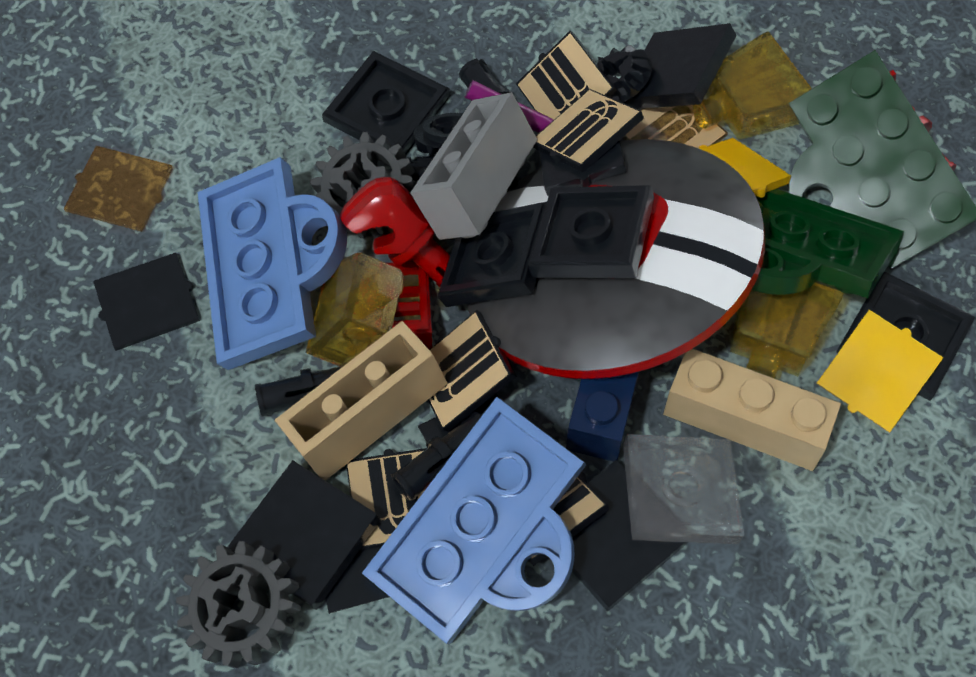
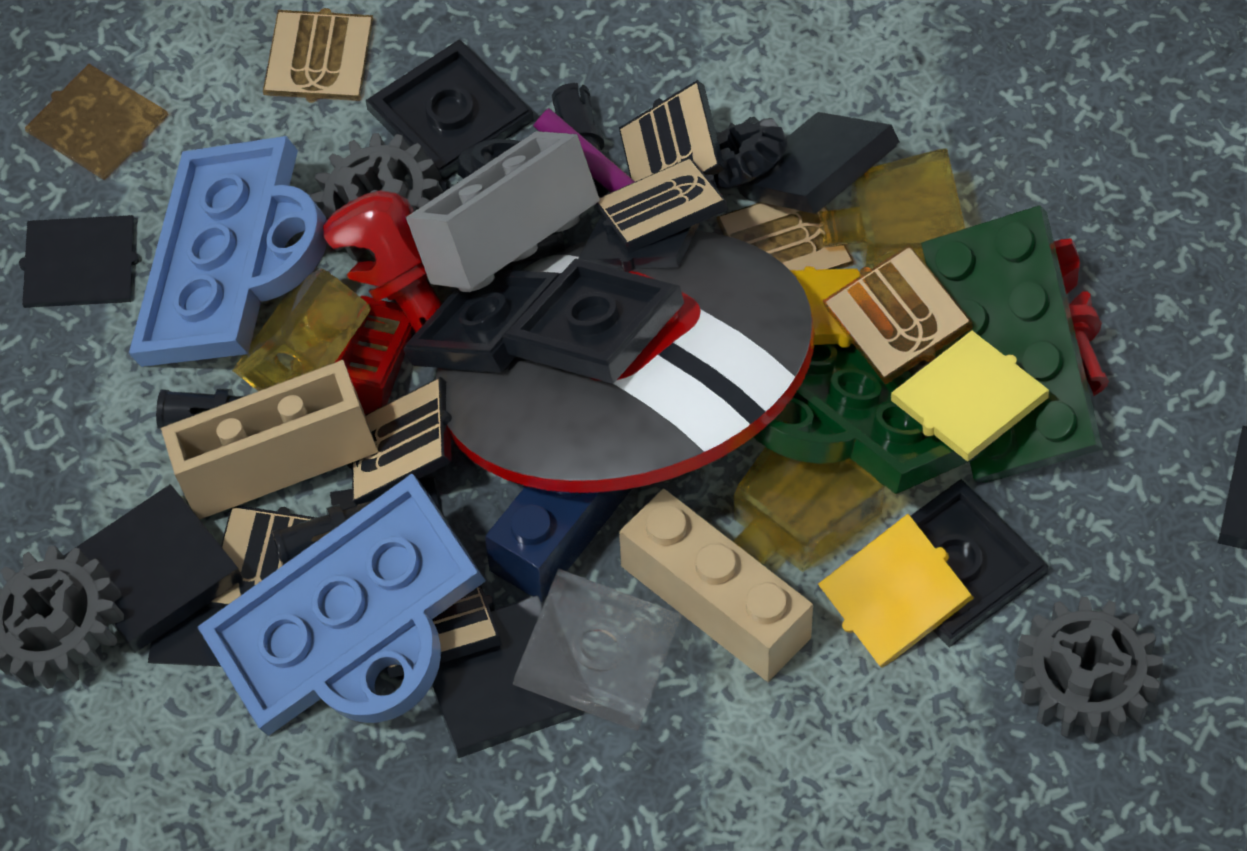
camera: 20 degrees right, 5 degrees down
(270, 91) = (318, 55): none -> piece
(797, 161) = (897, 314): none -> piece
(882, 206) = (969, 395): none -> light yellow piece

